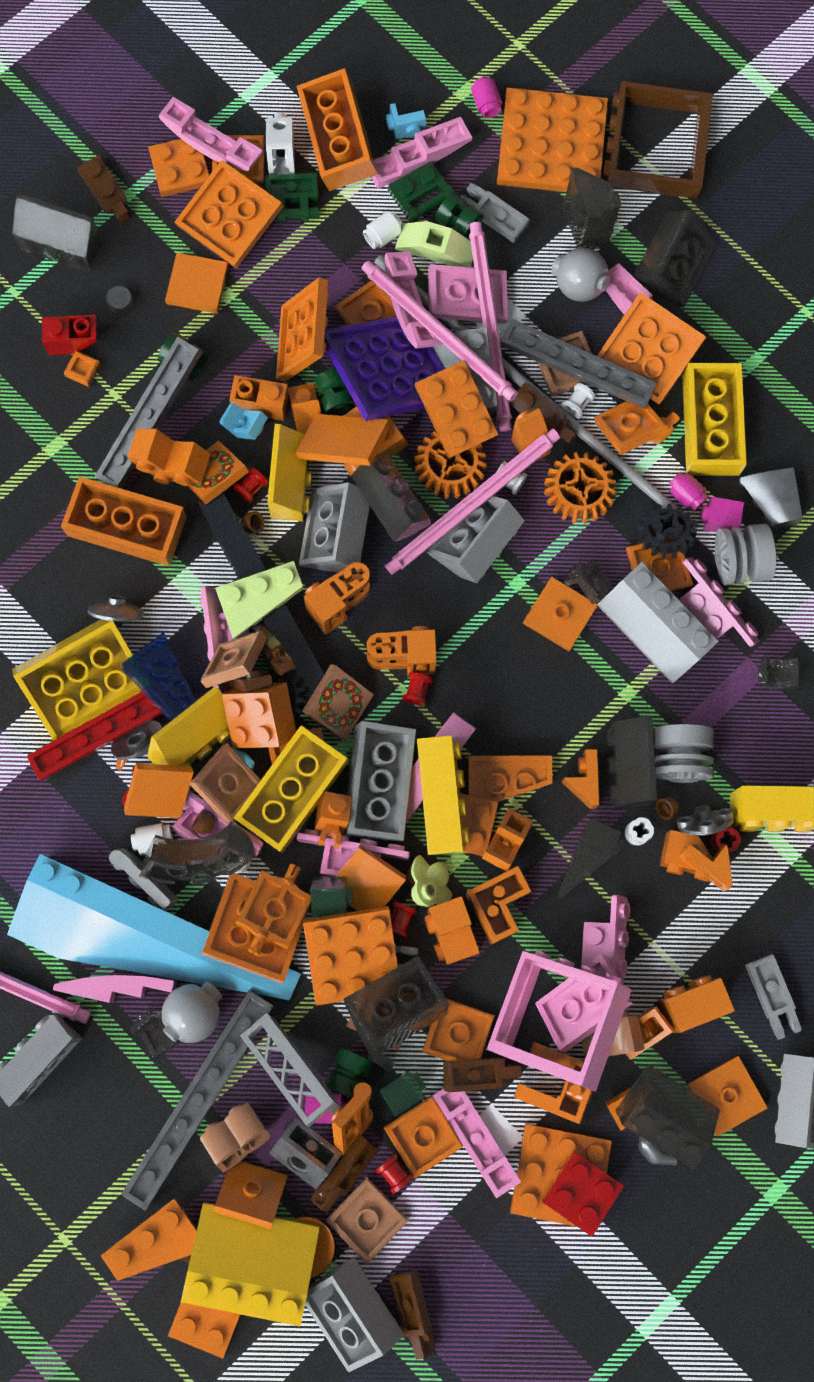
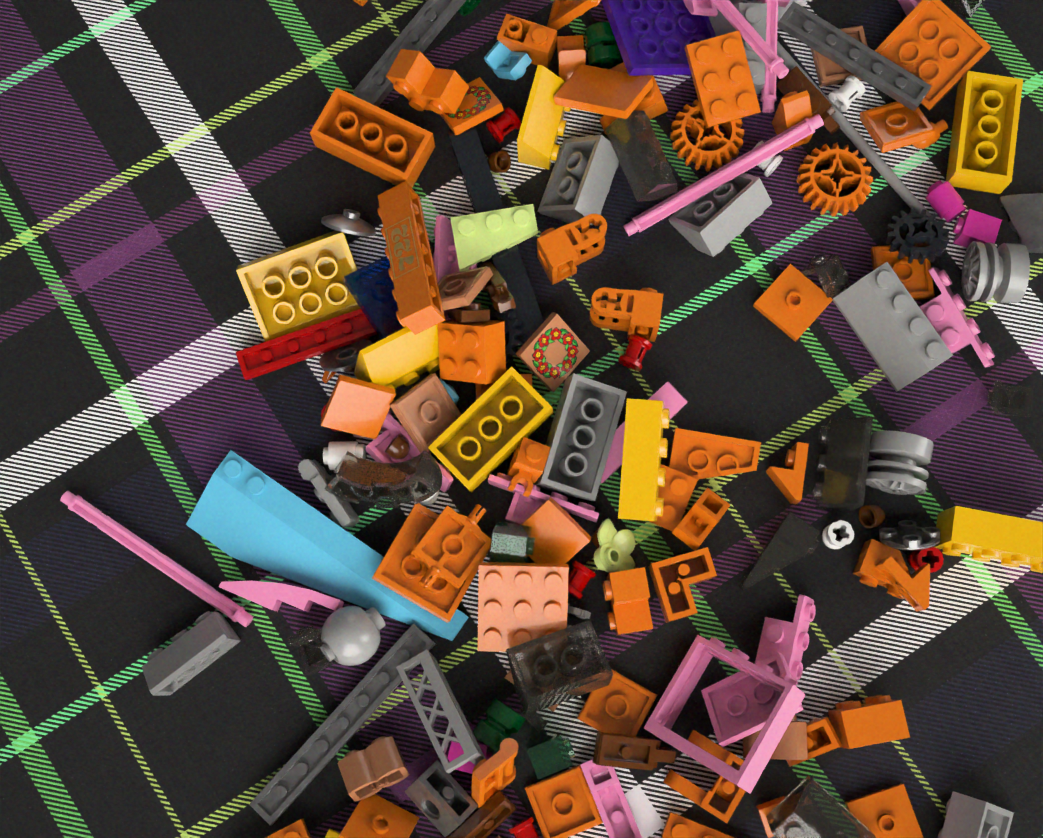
camera: 20 degrees right, 0 degrees up
(183, 636) = (410, 259): none -> orange brick
(773, 994) = (951, 727): light grey hinge -> none

